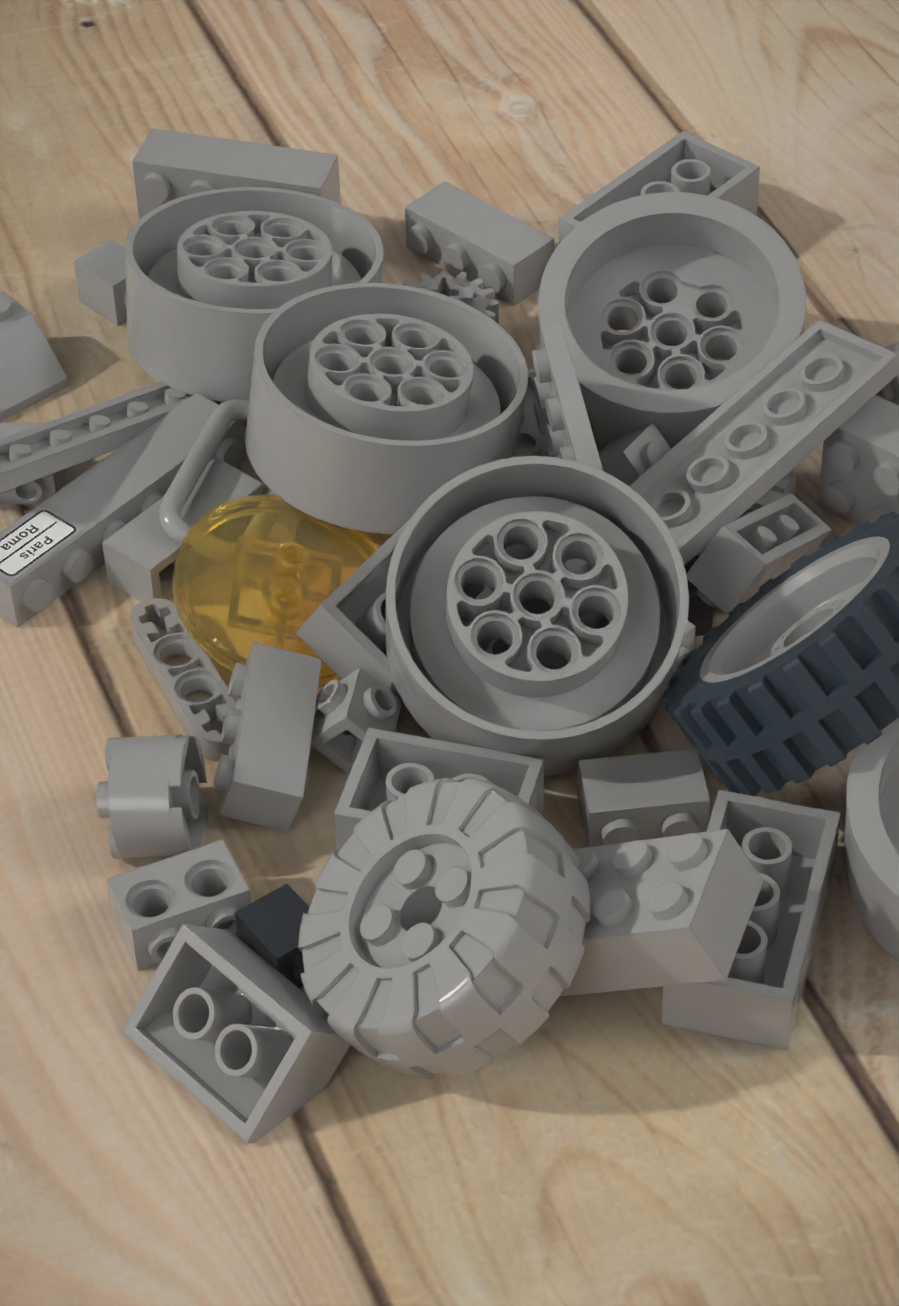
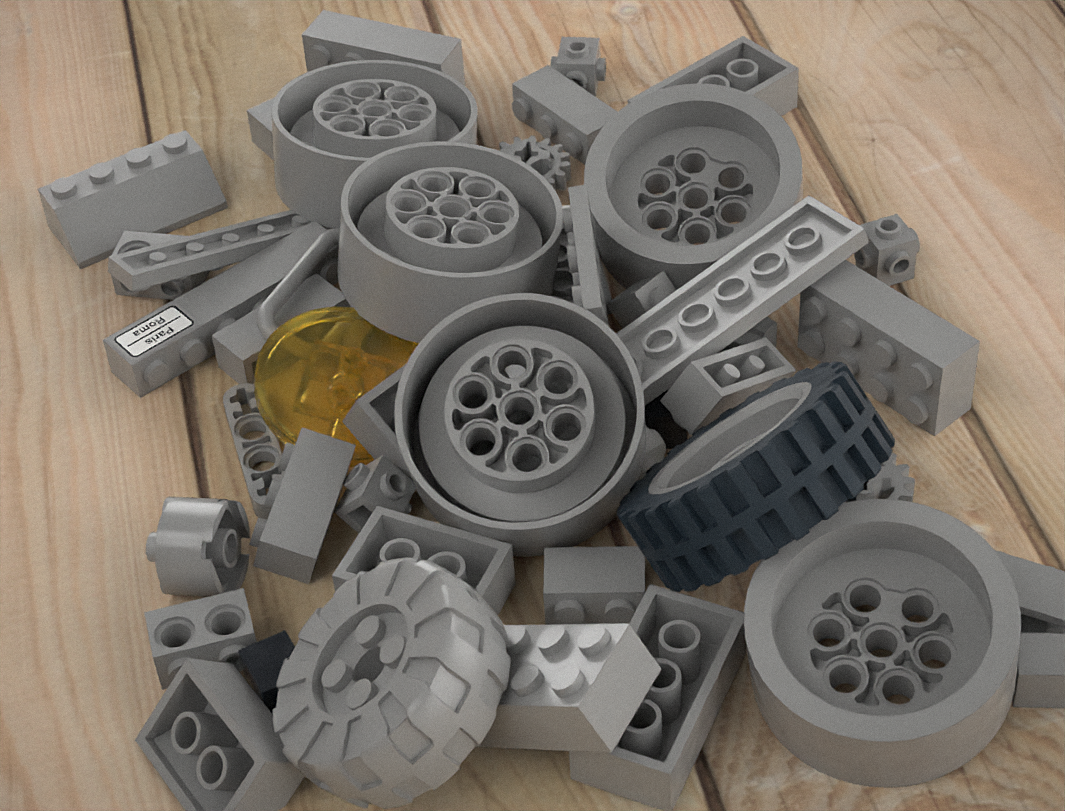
camera: 10 degrees right, 0 degrees up
(483, 173) = (581, 62): none -> light grey brick

